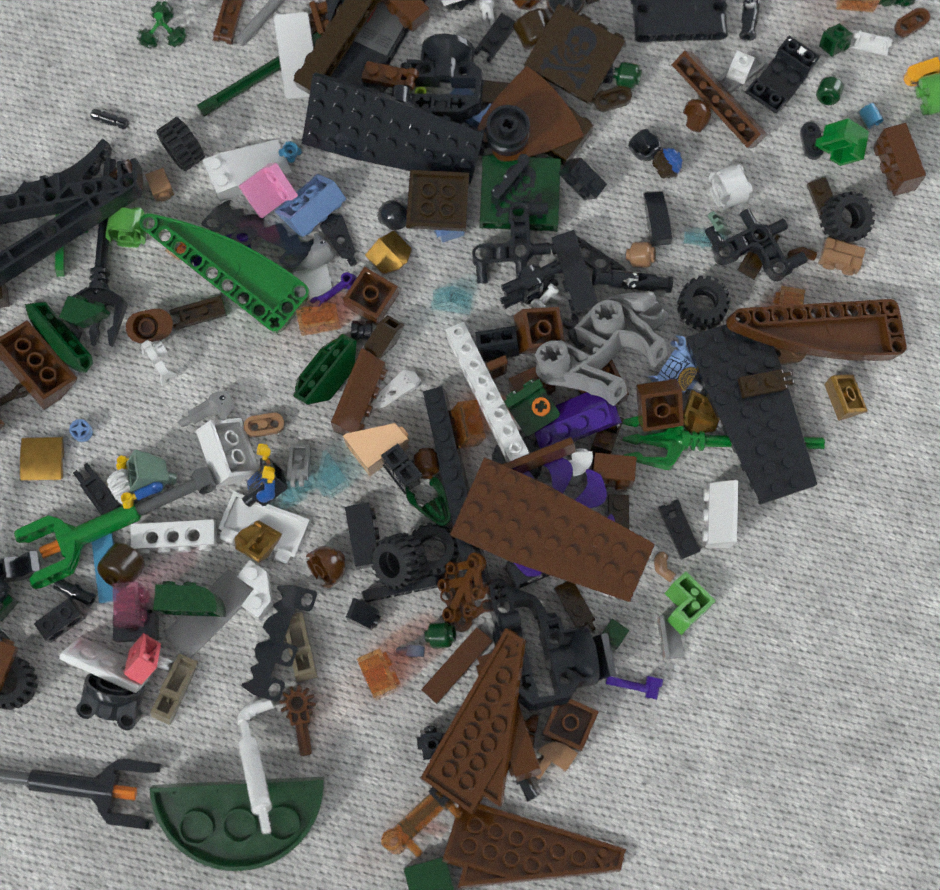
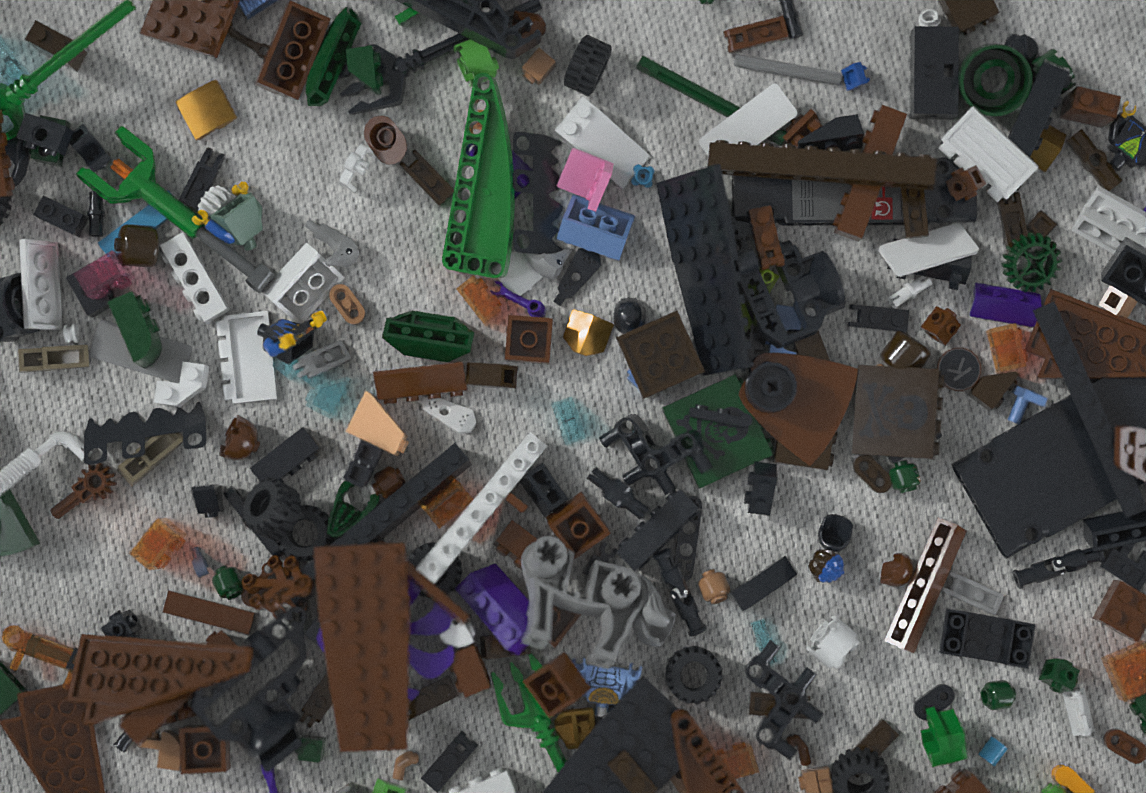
camera: 60 degrees right, 10 degrees up
(78, 427) = (250, 127): medium blue wheel -> none
(142, 659) = (59, 316): coral brick -> none
(257, 541) = (227, 360): pearl gold slope -> none
(362, 330) = (490, 348): black wheel -> none
(521, 407) = (489, 559): dark green bracket -> none
(537, 402) = (490, 575): orange bush -> none
(552, 293) = (626, 518): white piece -> none
(719, 224) = (789, 653): sand green tile -> none
(740, 67) = (971, 591): white brick -> none

